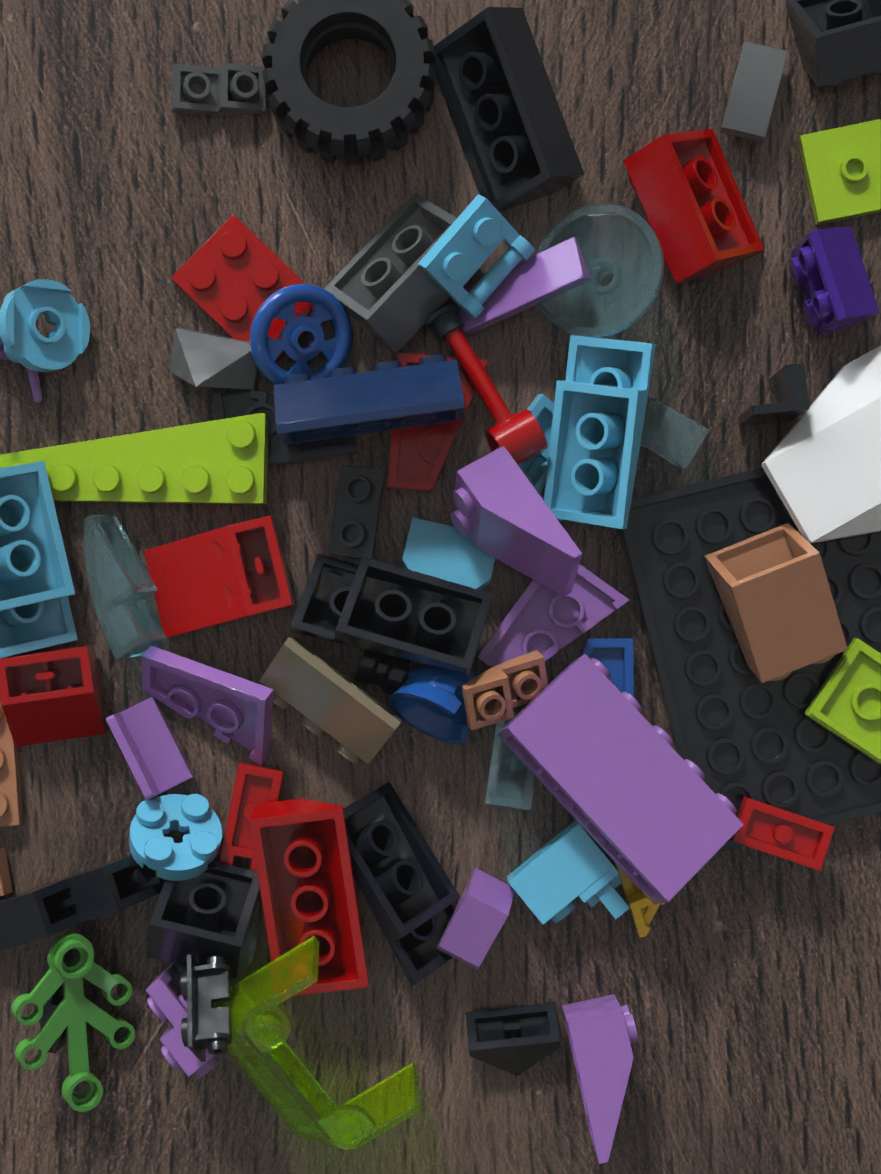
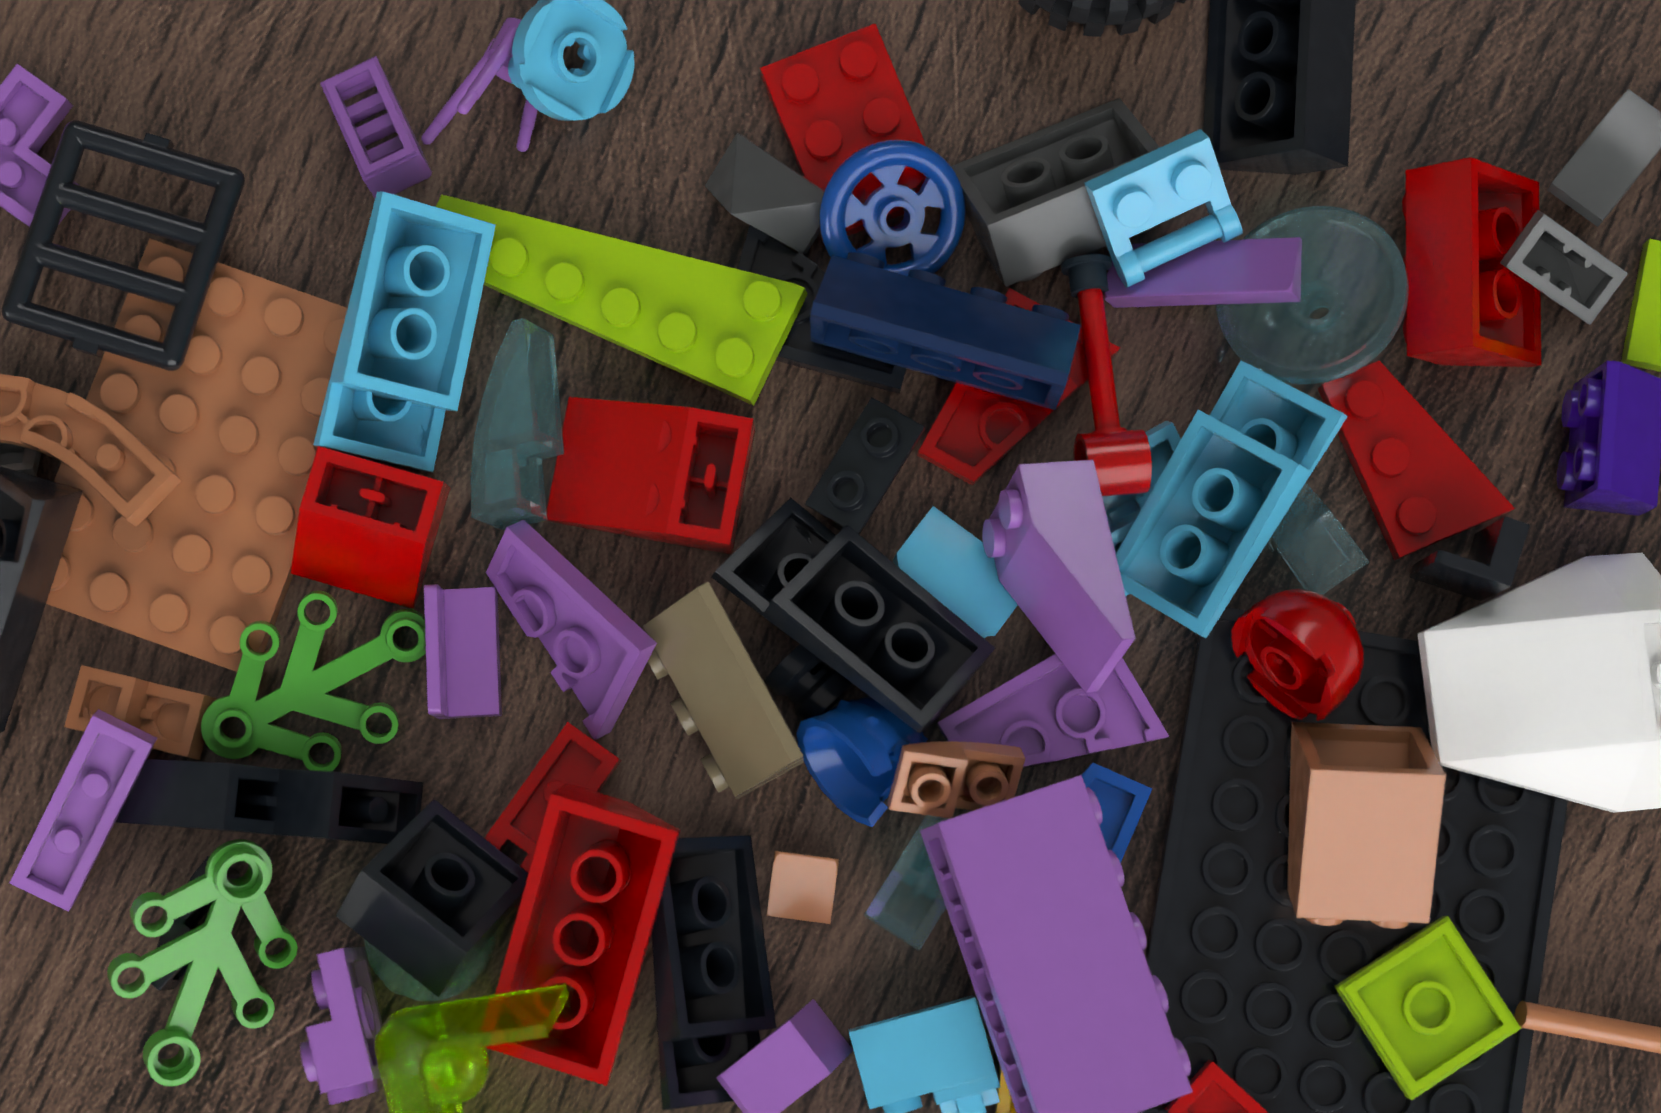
camera: 25 degrees right, 5 degrees down
(60, 816) = (306, 689): none -> bright green plant
(175, 813) = (461, 752): medium azure plate -> none
(206, 1025) = (373, 1032): black hinge -> none
(437, 800) = (802, 887): none -> nougat slope
(691, 509) = (1301, 651): none -> red cylinder
(706, 353) = (1407, 464): none -> red wing
(752, 180) = (1563, 267): none -> dark grey slope

